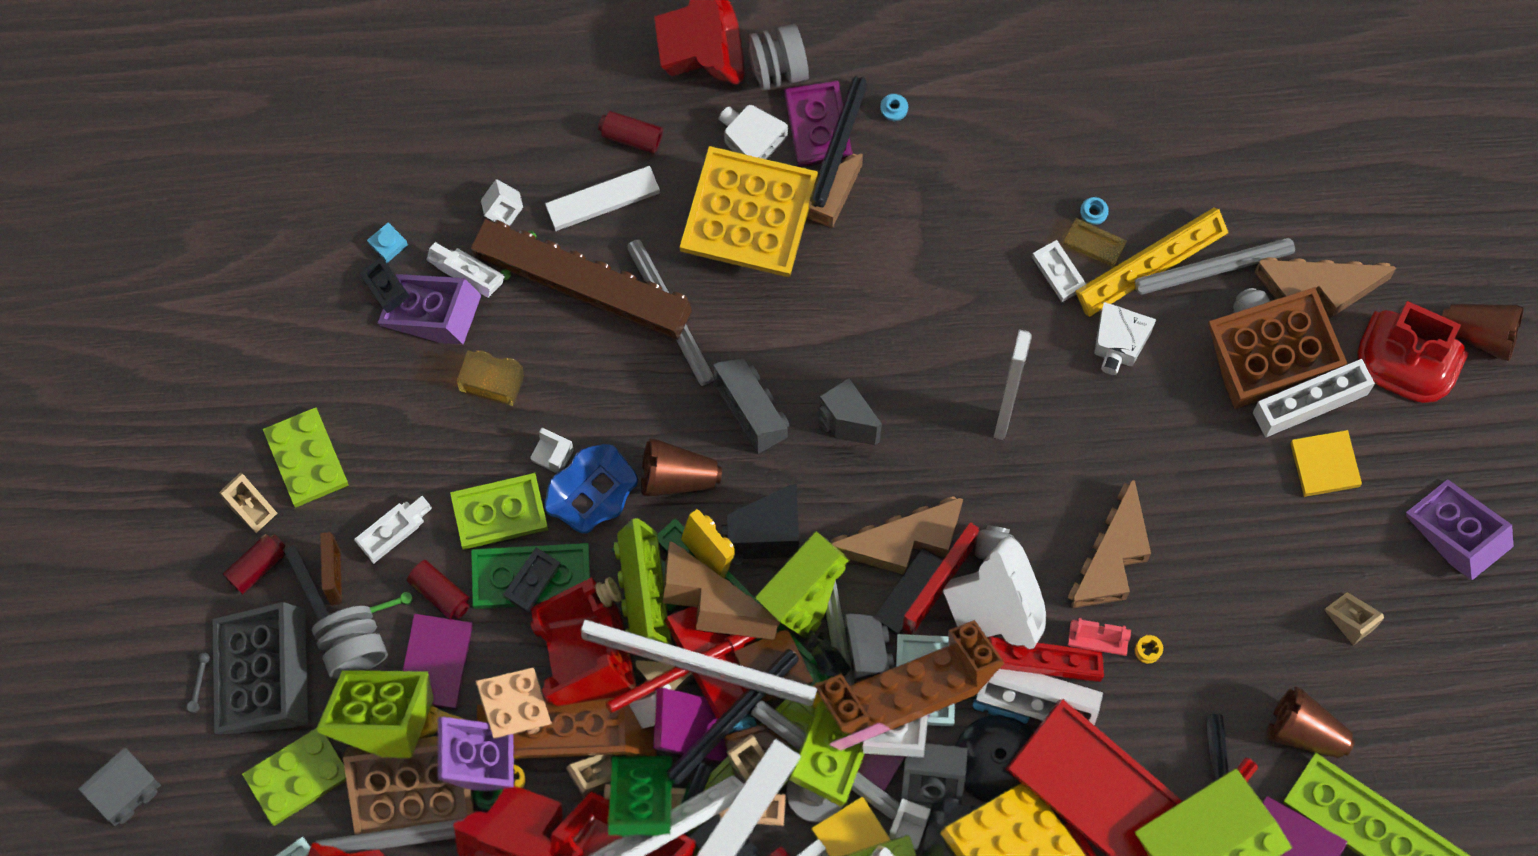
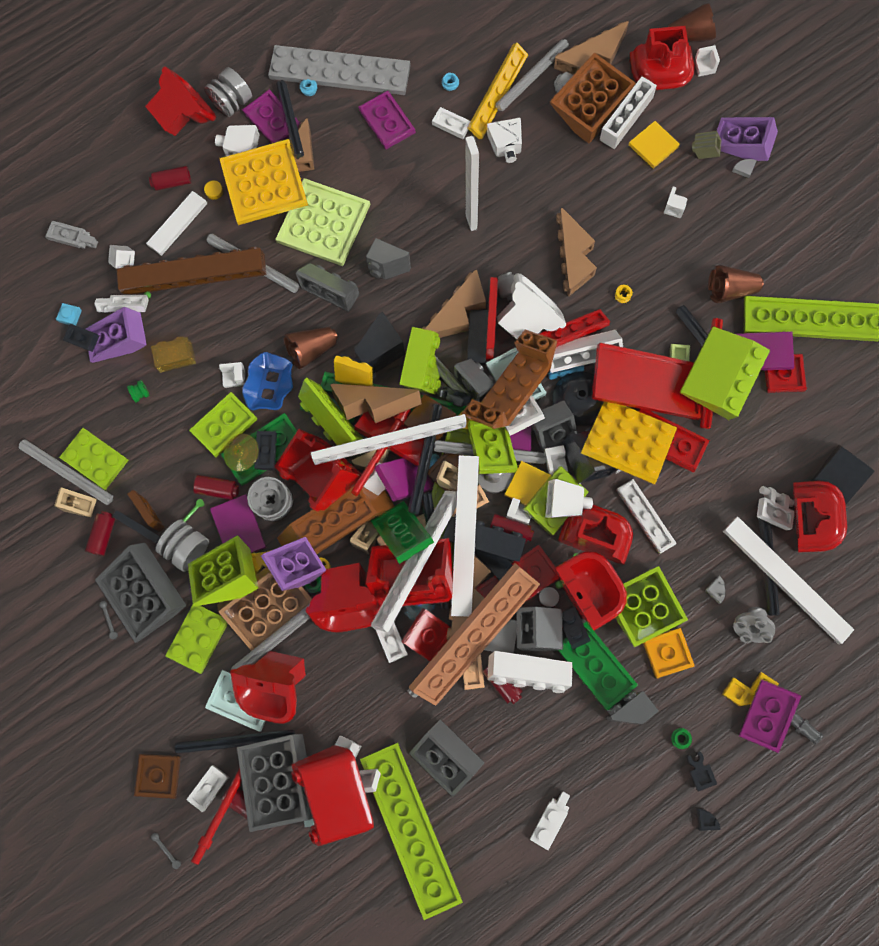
camera: 25 degrees left, 5 degrees up
(120, 787) = (97, 706): dark grey slope -> none
(259, 454) = (66, 472): none -> light grey axle
(392, 528) = (168, 469): white hinge -> none
(415, 400) = (138, 391): none -> green wheel
(452, 135) = (70, 235): none -> light grey hinge
(487, 636) = (259, 500): none -> light grey wheel
(503, 571) = (247, 452): none -> clear yellow dish
(513, 703) = (298, 523): light nougat hinge -> none
(608, 592) = (313, 431): tan bush -> none
(679, 180) = (213, 190): none -> yellow tile
(799, 317) = (326, 225): none -> yellowish green plate
(859, 736) = (501, 430): bright pink sticker -> none
(952, 107) = (340, 69): none -> light grey plate
(973, 214) = (387, 119): none -> magenta tile
(1094, 637) = (592, 303): coral hinge -> none
(1095, 242) = (461, 98): clear yellow tile -> none
(1175, 777) = (680, 351): none -> yellowish green tile
(1301, 565) = (675, 205): none -> white panel
(1354, 617) = (720, 214): tan slope -> none
(1397, 508) = (707, 145): none -> olive brick
(1435, 570) = (744, 167): none -> light grey tile
(1475, 386) = (706, 61): none -> white panel

